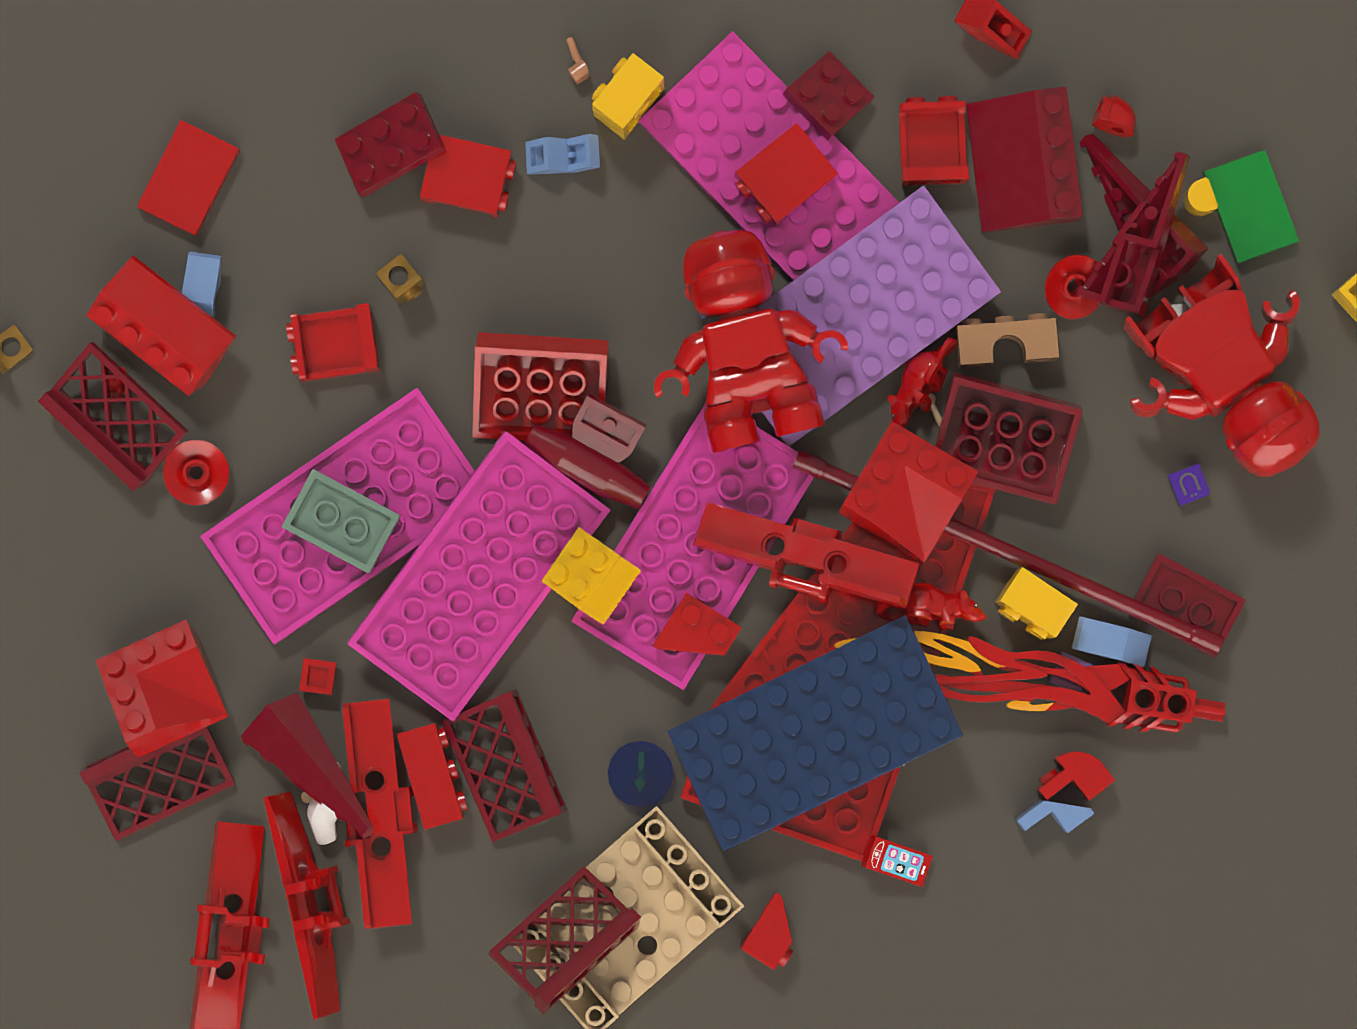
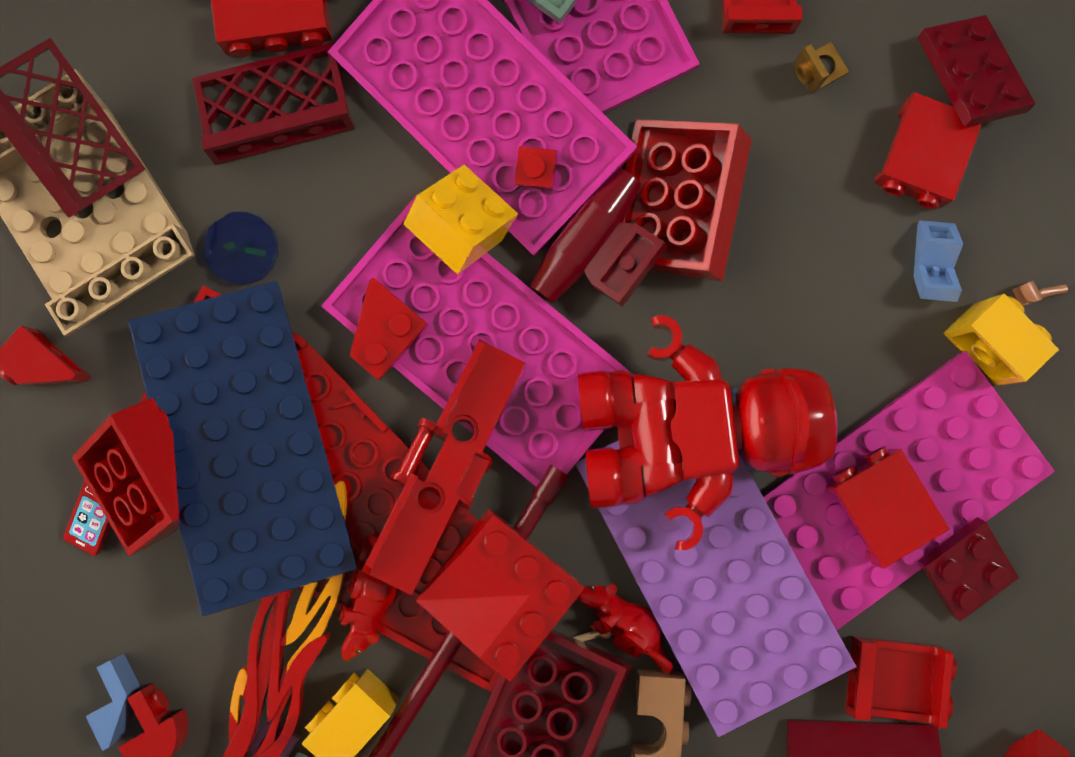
camera: 100 degrees right, 0 degrees up
(535, 517) = (536, 167): none -> red plate
(857, 812) = (133, 474): none -> red slope

